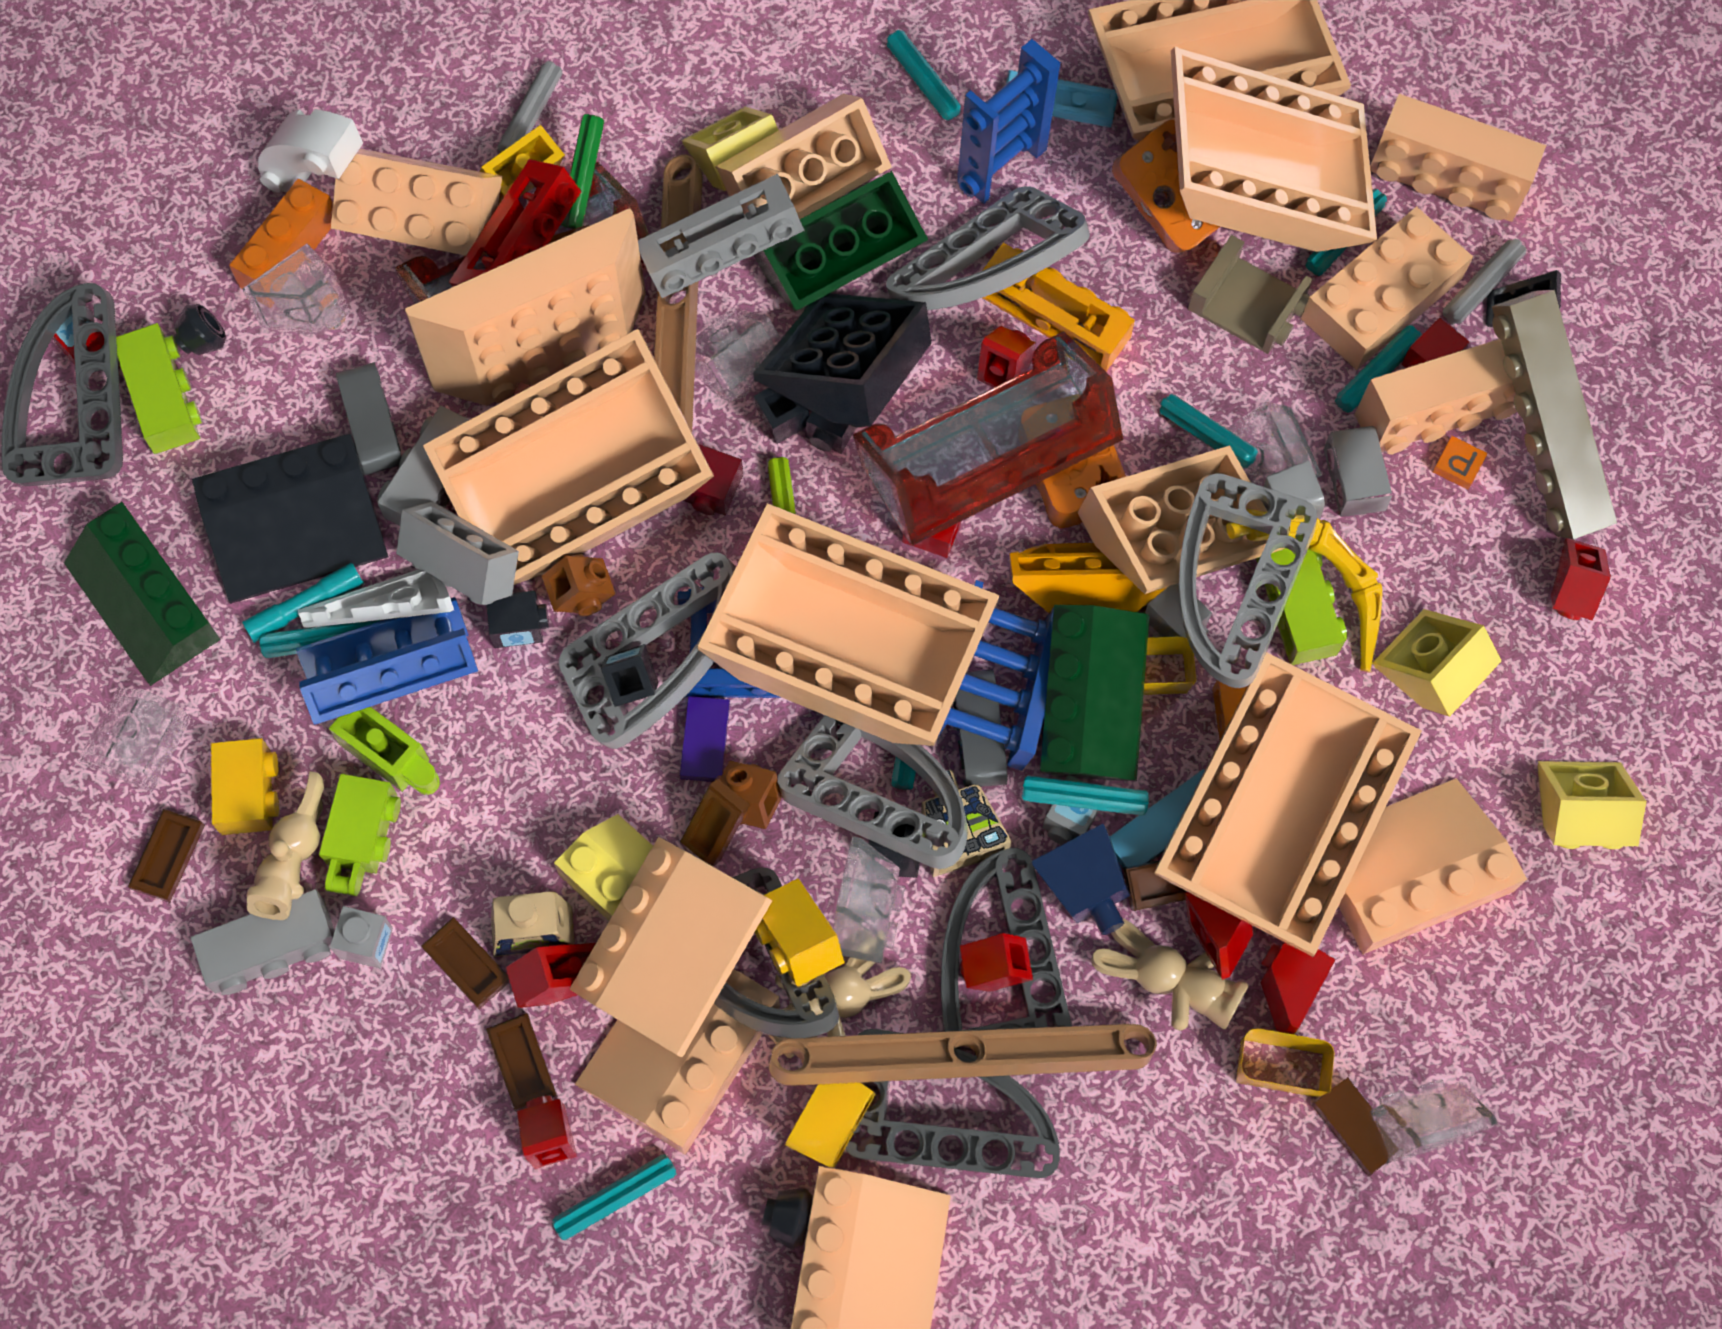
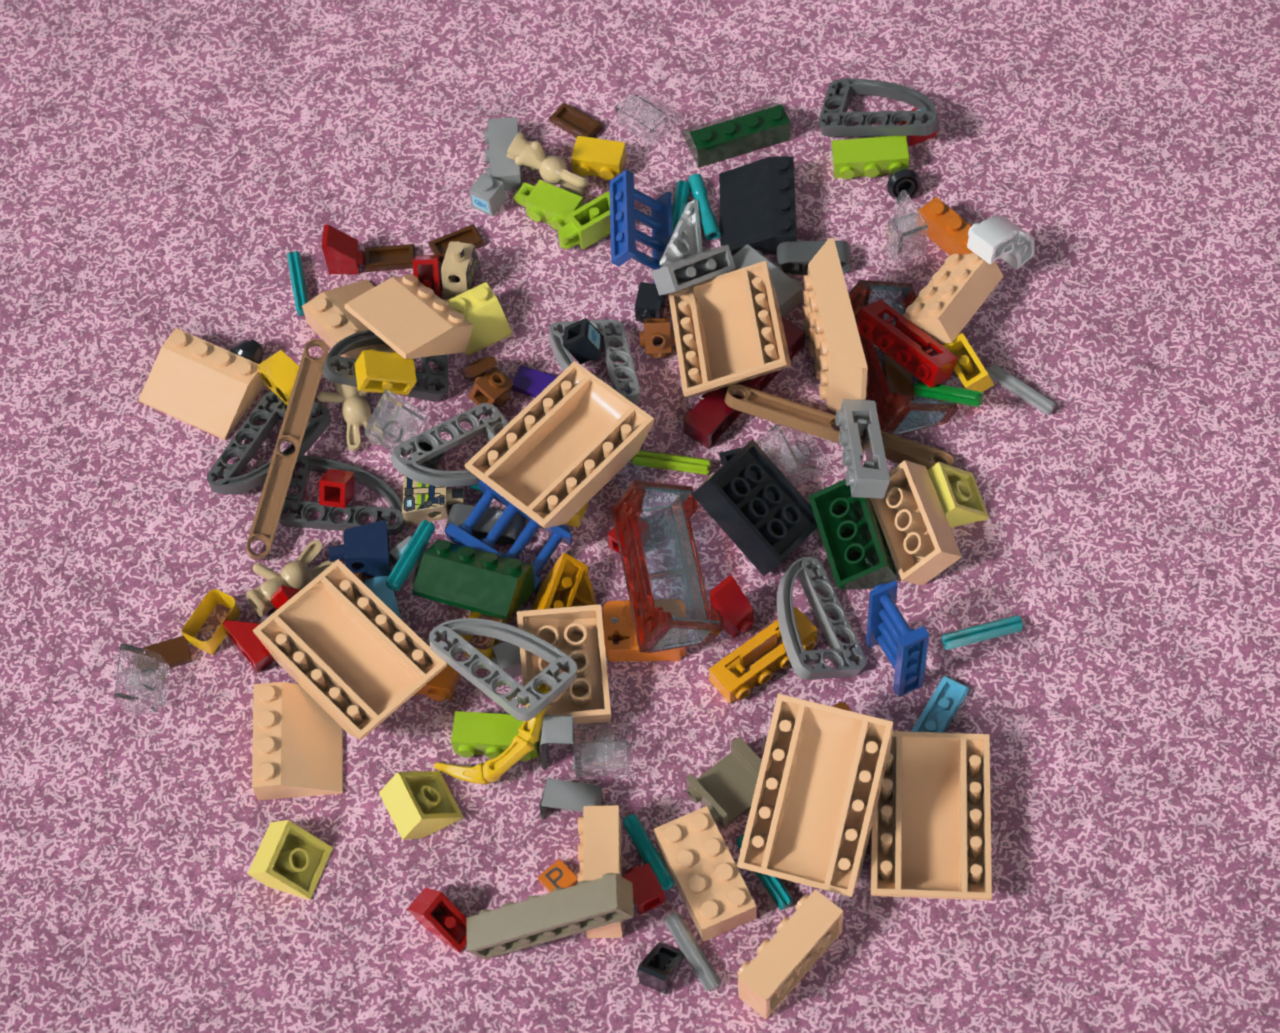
camera: 115 degrees right, 10 degrees down
(1206, 429) = (634, 716): teal axle -> none

